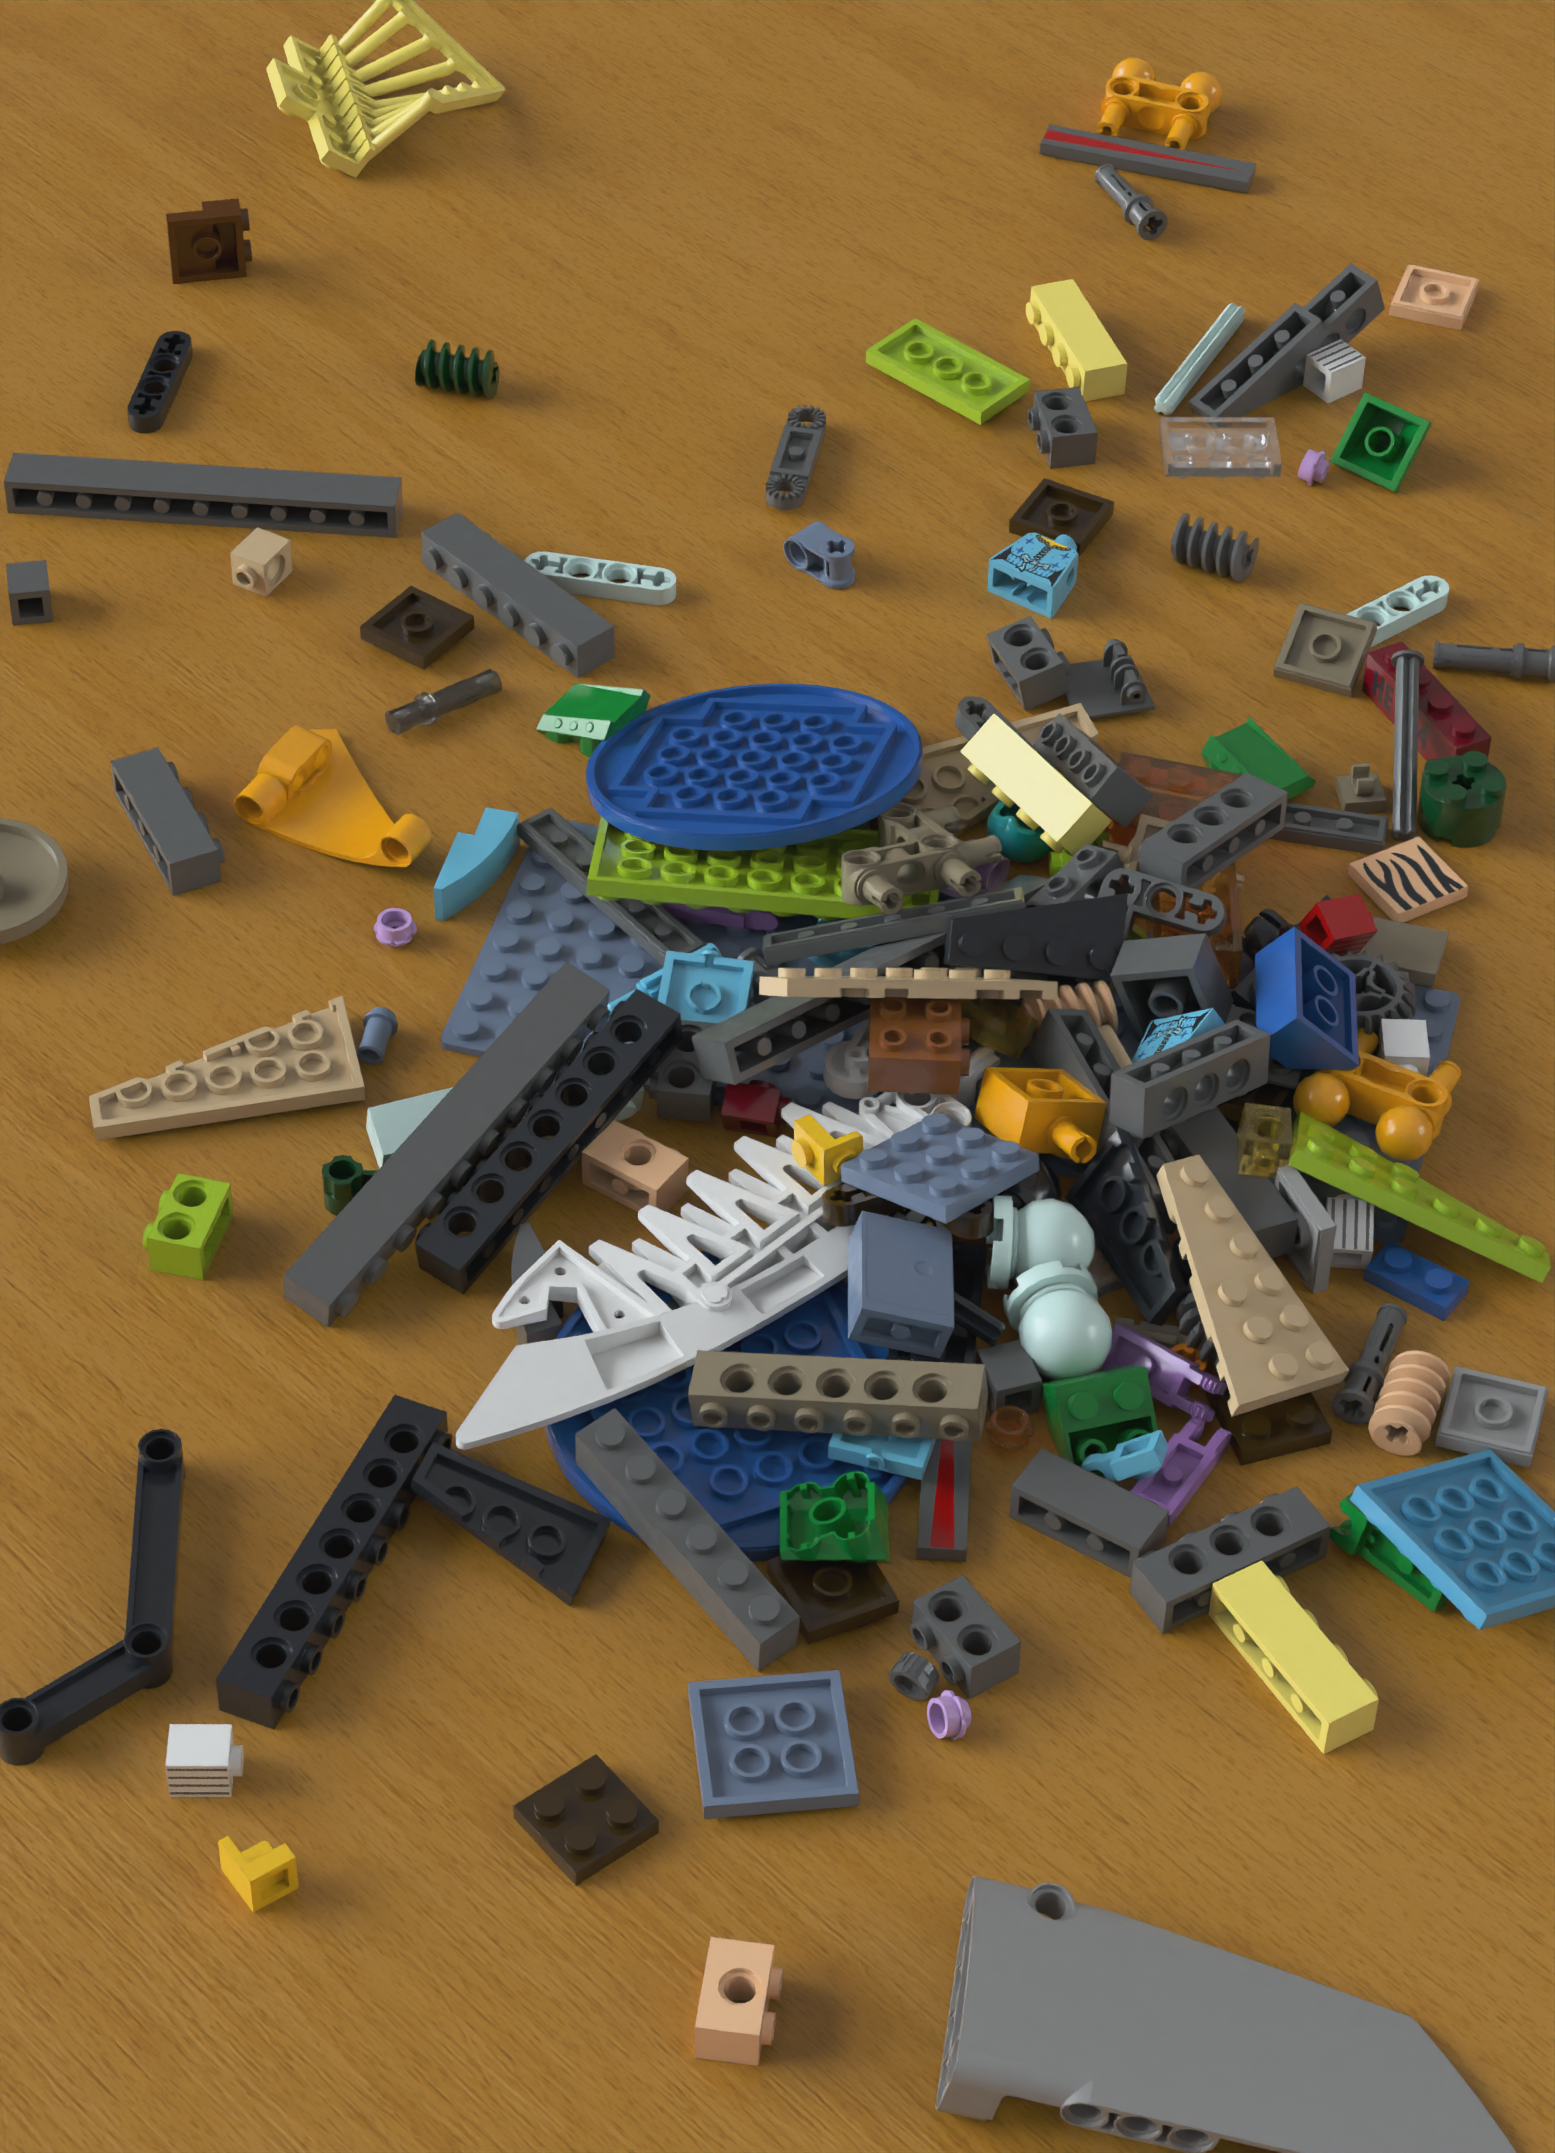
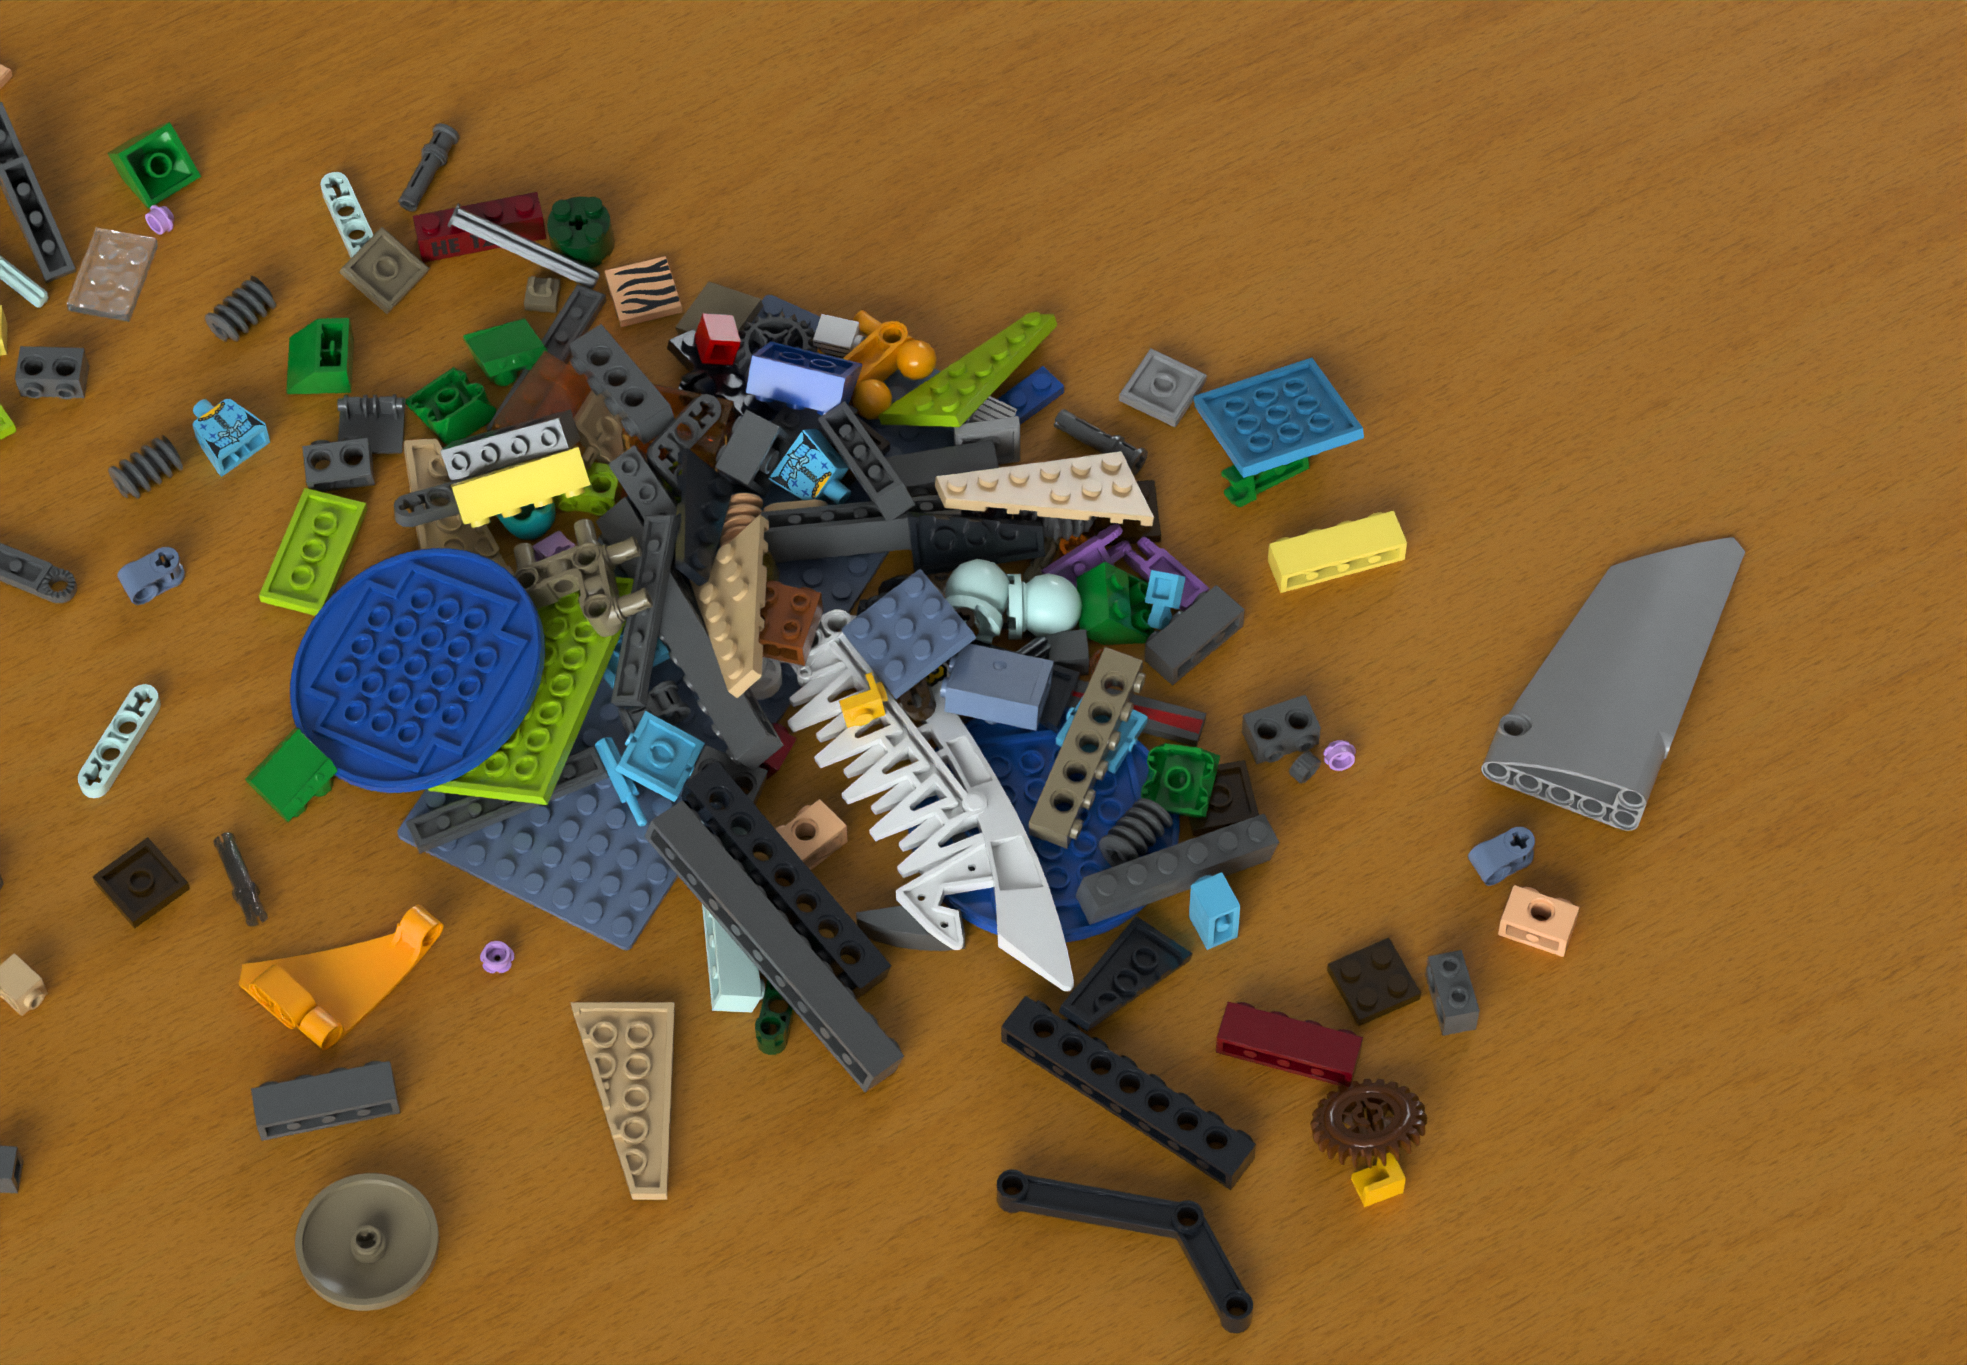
camera: 75 degrees left, 15 degrees up
(189, 1226) = (791, 1135): lime brick -> none
(202, 1760) = (1285, 1200): white brick -> none
(332, 1832) = (1376, 1134): none -> reddish brown gear
(379, 1027) = (612, 987): sand blue pin -> none
(451, 1728) = (1289, 1044): none -> dark red brick
(476, 862) = (442, 886): medium azure slope -> none
(518, 595) = (127, 802): dark grey brick -> none
(580, 1905) = (1452, 992): none -> dark grey brick
(632, 1592) = (1214, 910): none -> medium azure brick
(727, 1482) = (1135, 832): none -> dark grey piece
(772, 1744) = (1341, 860): sand blue plate -> none
(835, 1942) = (1503, 855): none -> sand blue piece
(906, 670) = (313, 552): none -> lime plate
(964, 520) = (145, 467): none -> dark grey piece
(1041, 1111) = (853, 564): light orange brick -> none
(1062, 510) = (160, 401): dark brown plate -> none
(1157, 736) = (452, 406): none -> green slope
(1175, 626) = (321, 358): none -> green slope
(1178, 1579) = (1241, 521): dark grey brick -> none
(1264, 1140) = (928, 436): clear yellow brick -> none
(1334, 371) = (49, 171): white brick -> none
(1408, 1402) = (1144, 429): light nougat piece -> none

